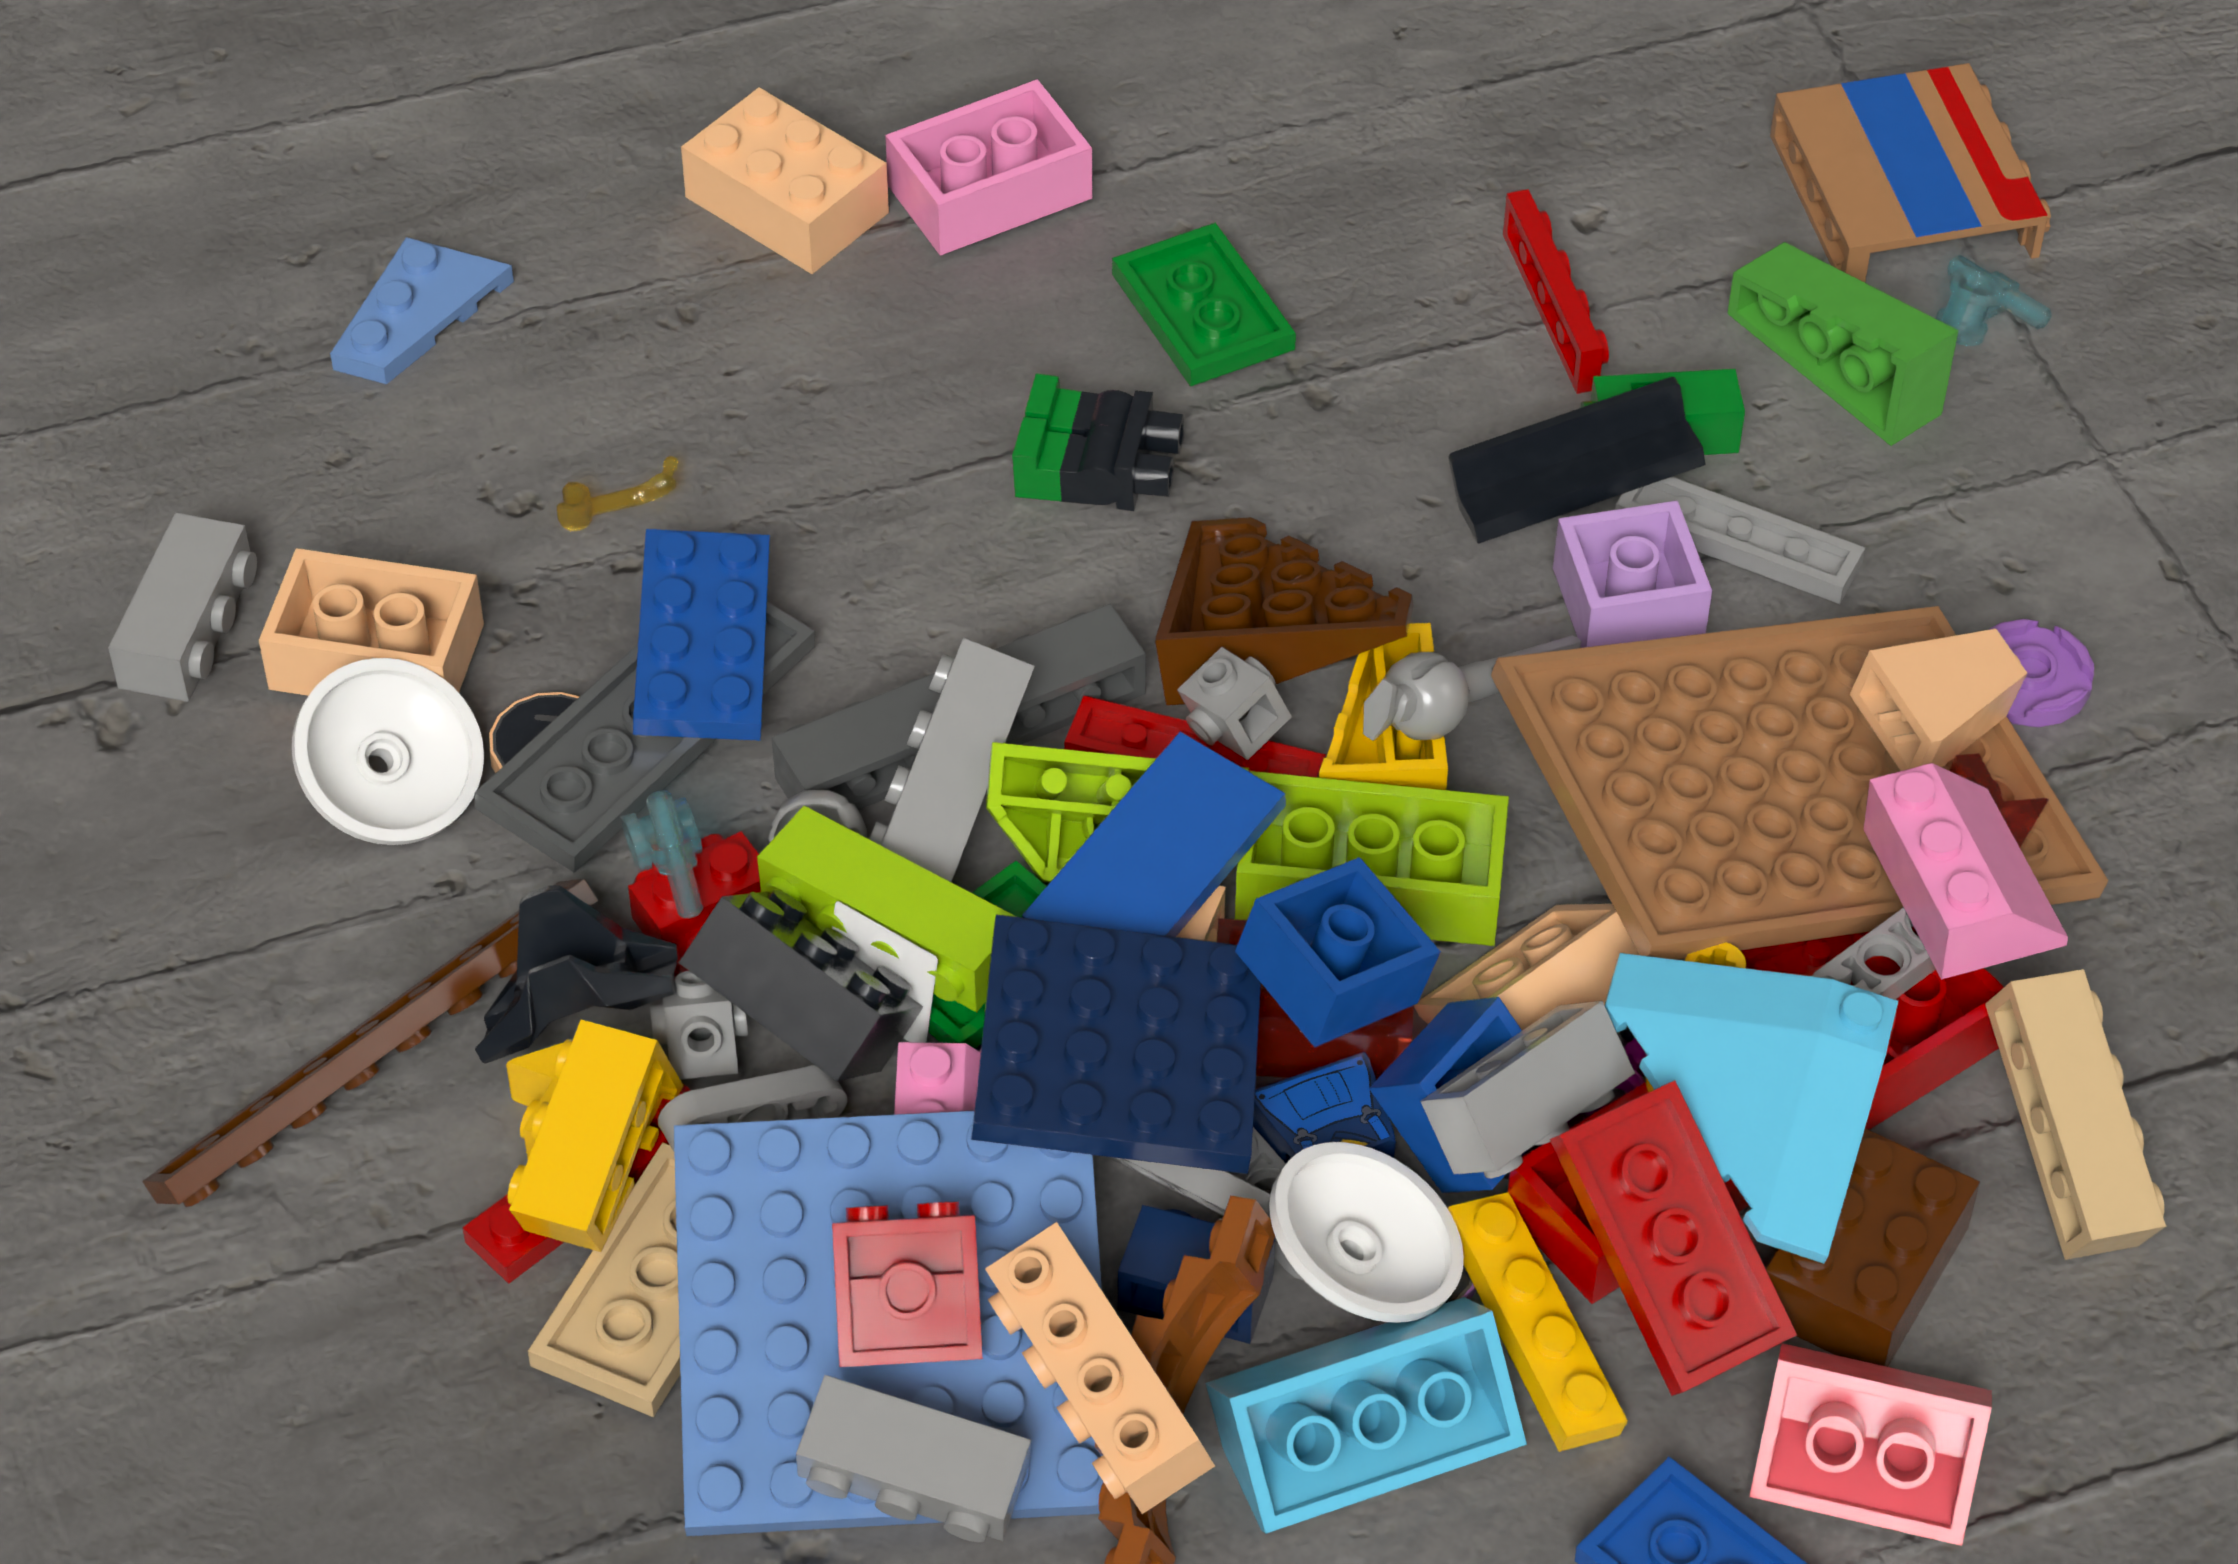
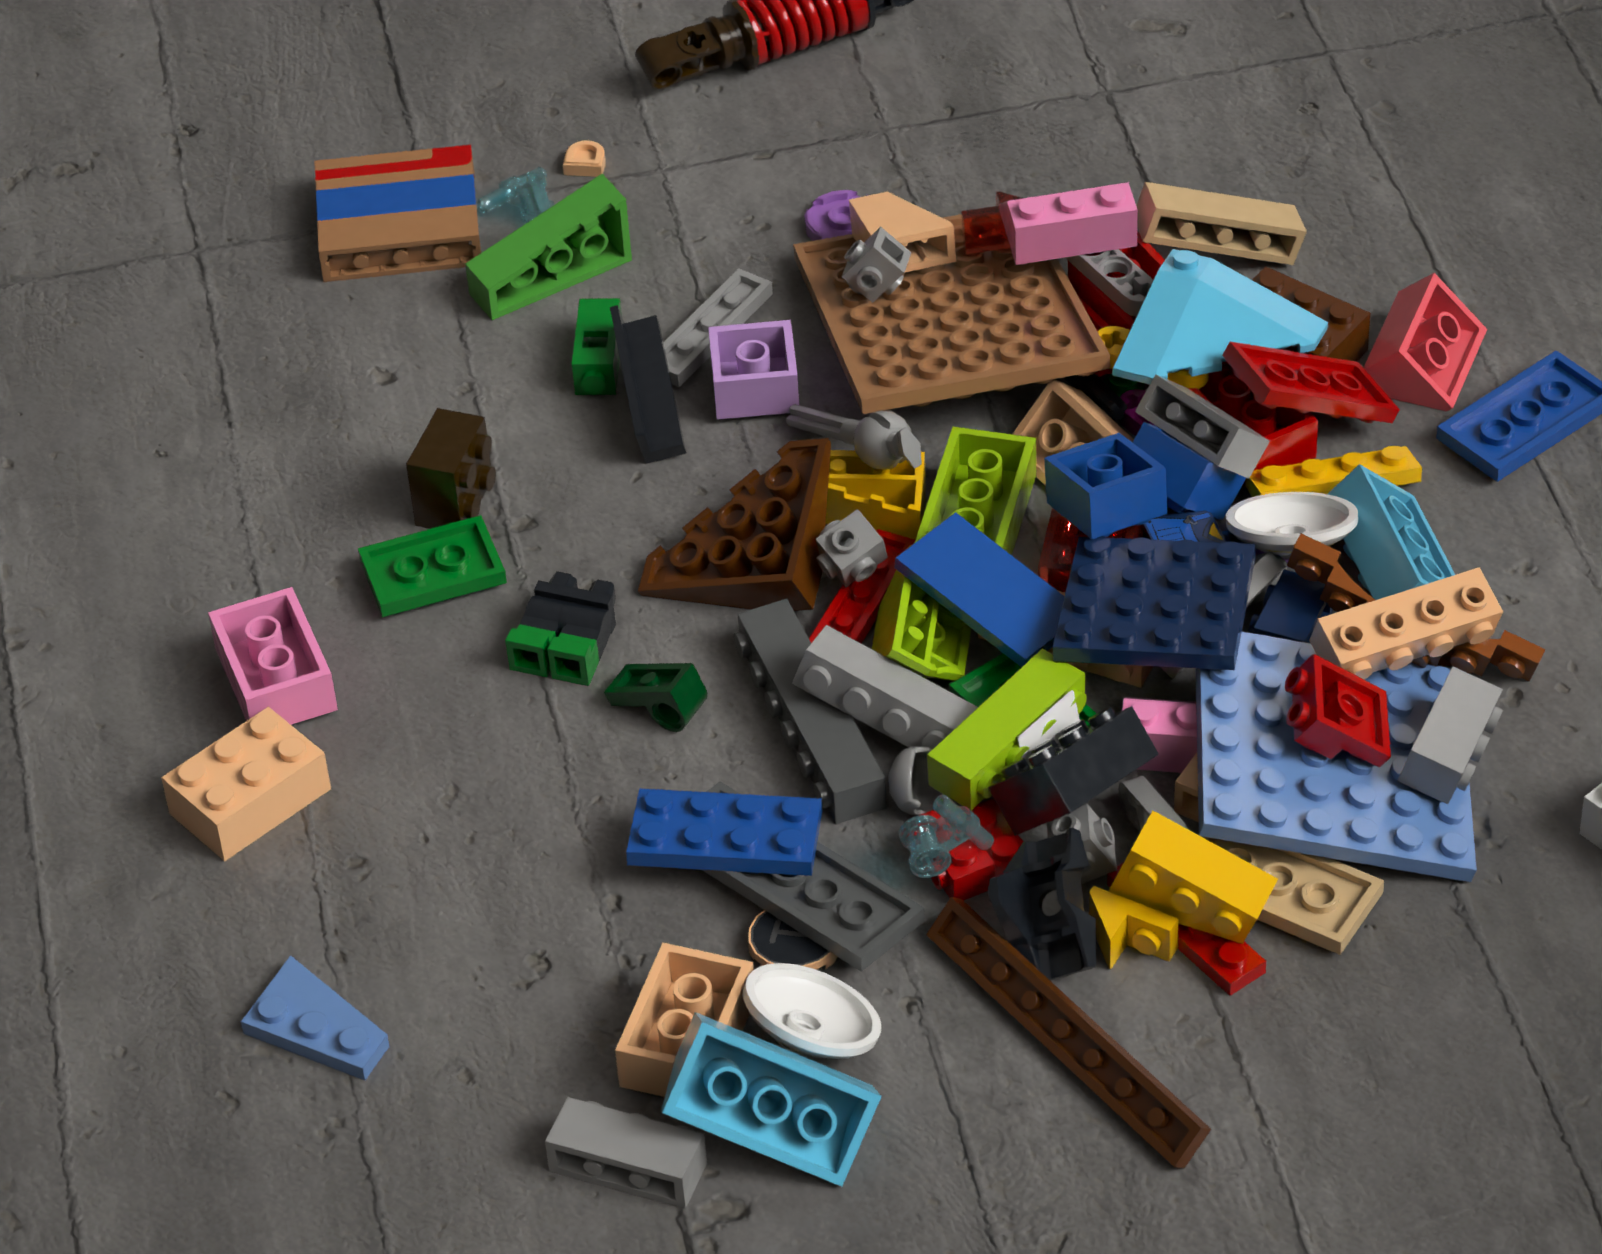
camera: 80 degrees left, 5 degrees down
(220, 708) = (769, 1099): none -> medium azure slope
(580, 507) = (555, 913): clear yellow piece -> none
(974, 553) = (667, 690): none -> dark green plate
(1353, 278) = (450, 469): none -> dark brown brick
(1552, 290) = (466, 388): red plate -> none
(1842, 658) = (876, 265): none -> light grey brick
(2095, 364) = (584, 159): none -> light nougat tile

